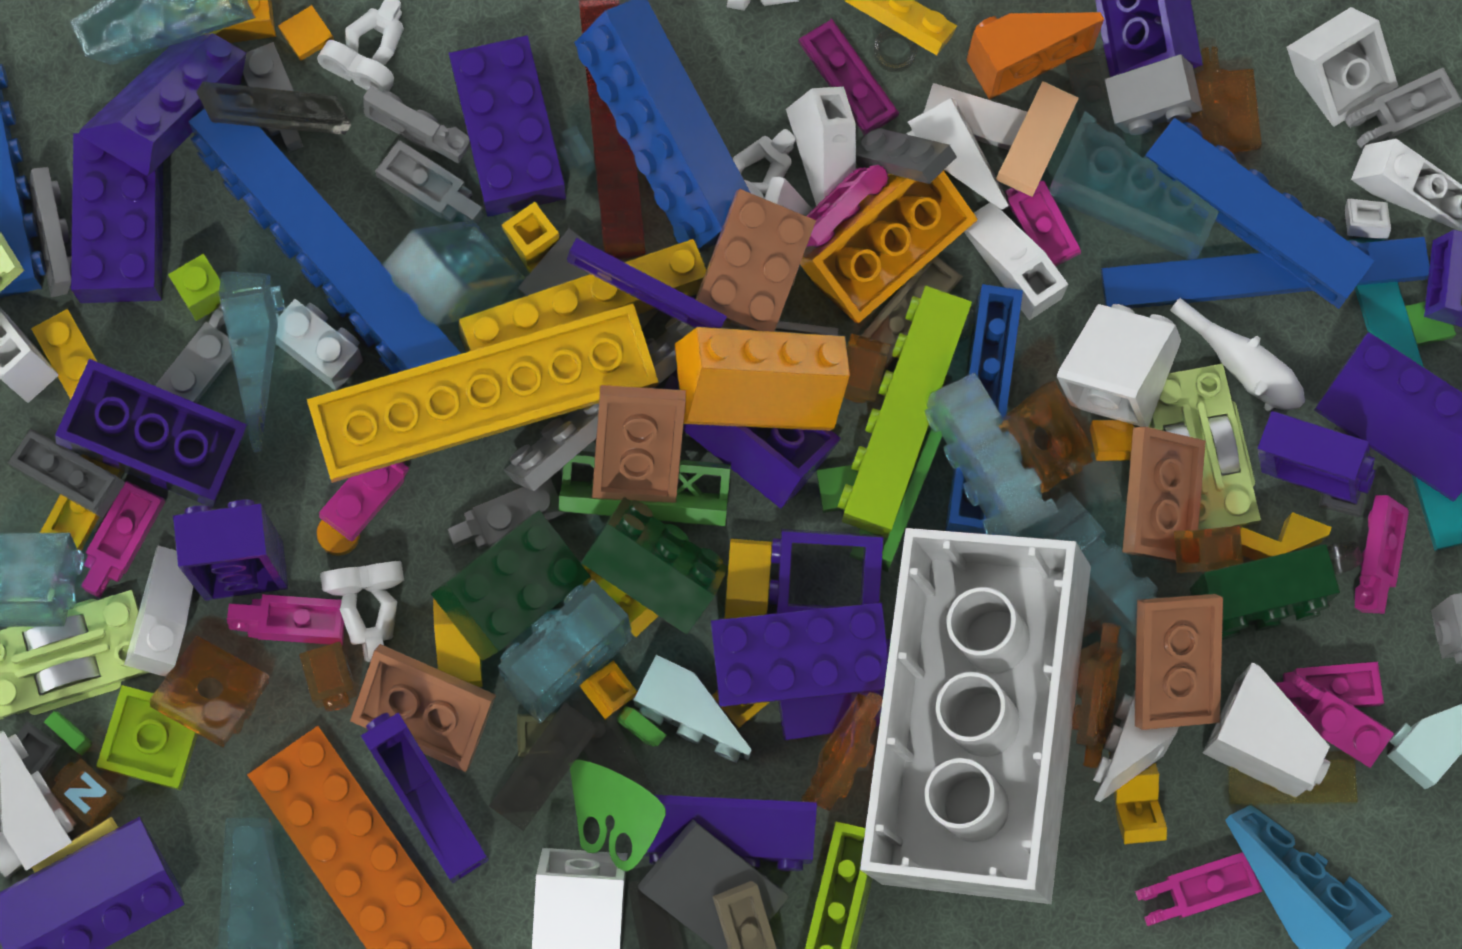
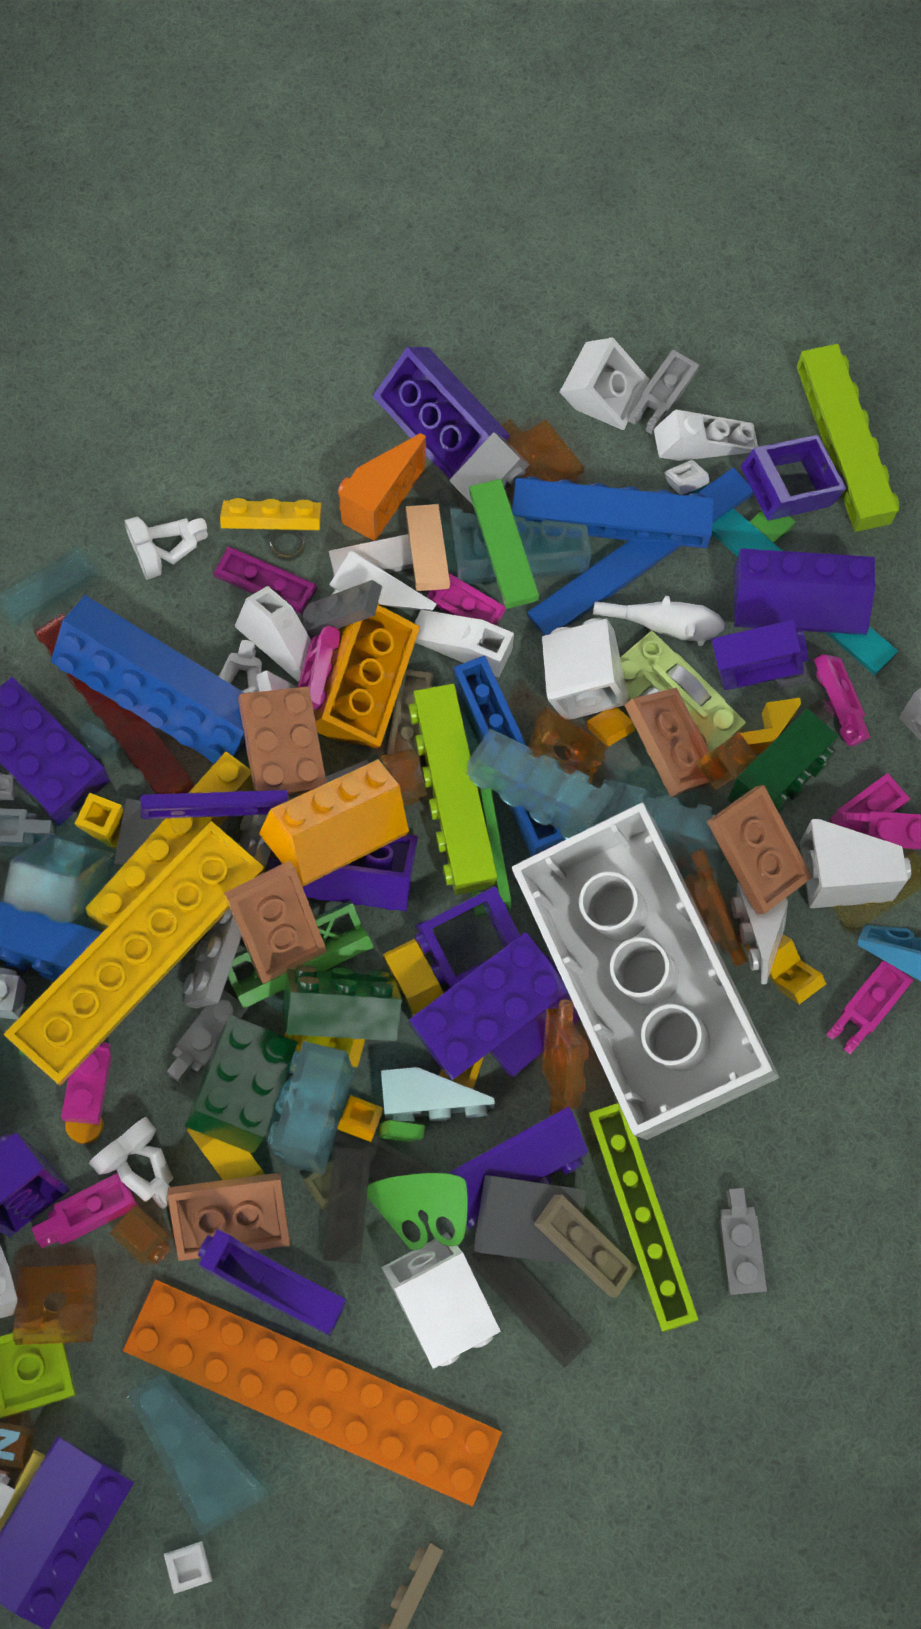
camera: 30 degrees left, 5 degrees down
(831, 485) = (432, 874): bright green tile -> none
(1116, 182) = (503, 543): none -> bright green tile

